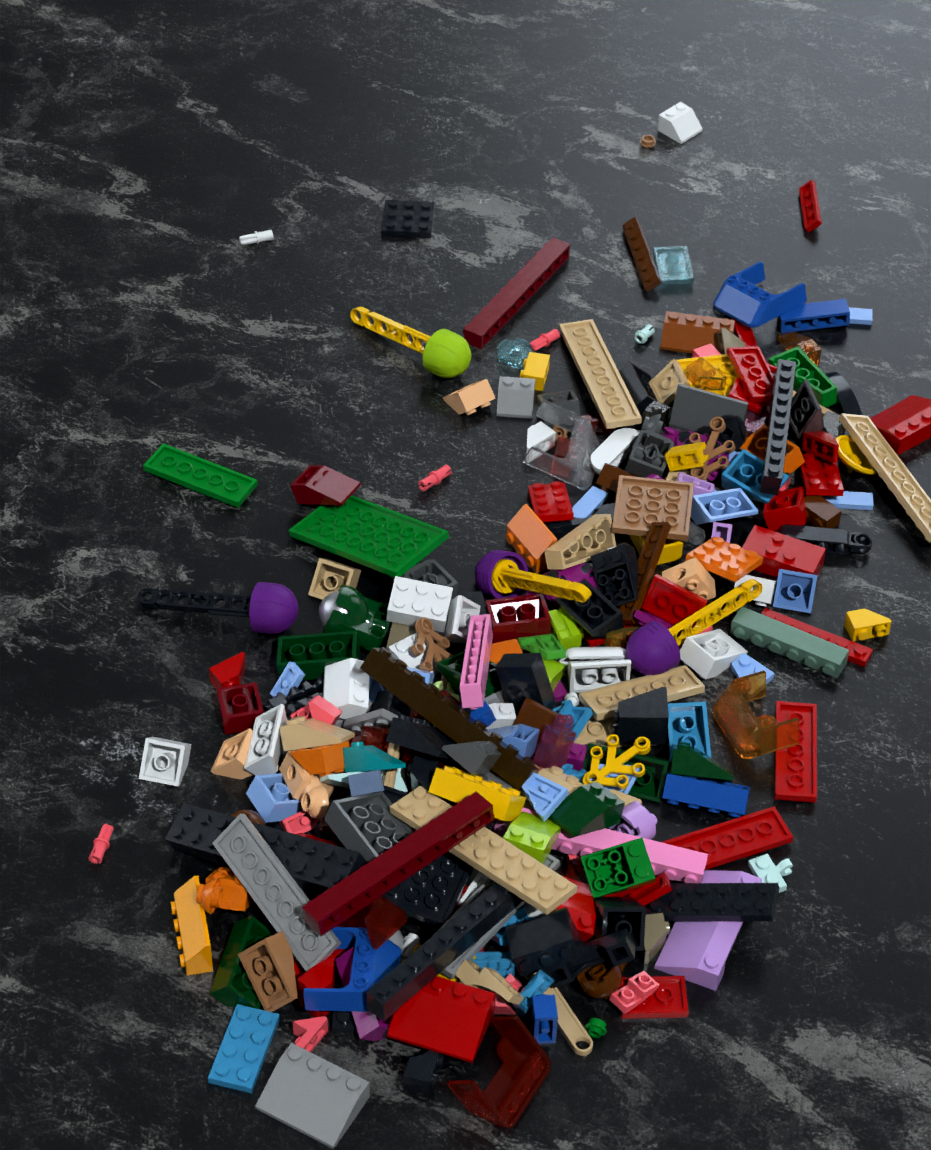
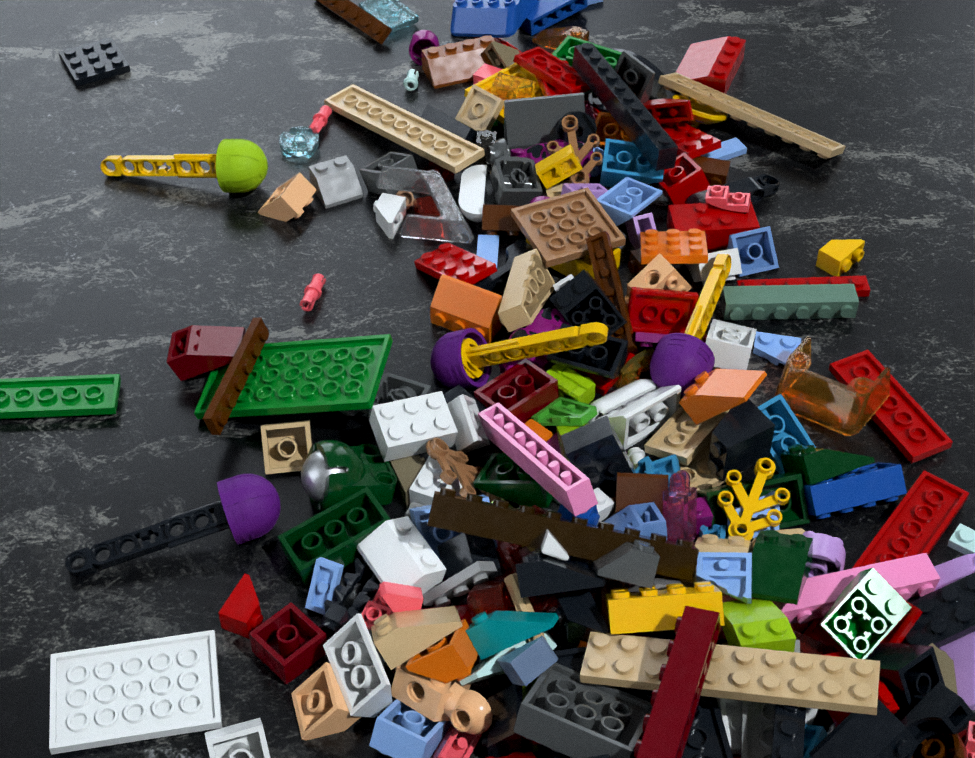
camera: 30 degrees left, 0 degrees up
(130, 693) = (134, 692): none -> white plate
(329, 515) = (236, 376): none -> reddish brown plate
(432, 720) = (552, 547): none -> white slope
(516, 293) = (258, 85): dark red brick -> none
(536, 368) = (333, 145): yellow brick -> none
(651, 676) = (719, 392): none -> orange slope
(674, 303) = (421, 40): none -> magenta helmet
(801, 538) = (720, 197): none -> coral slope

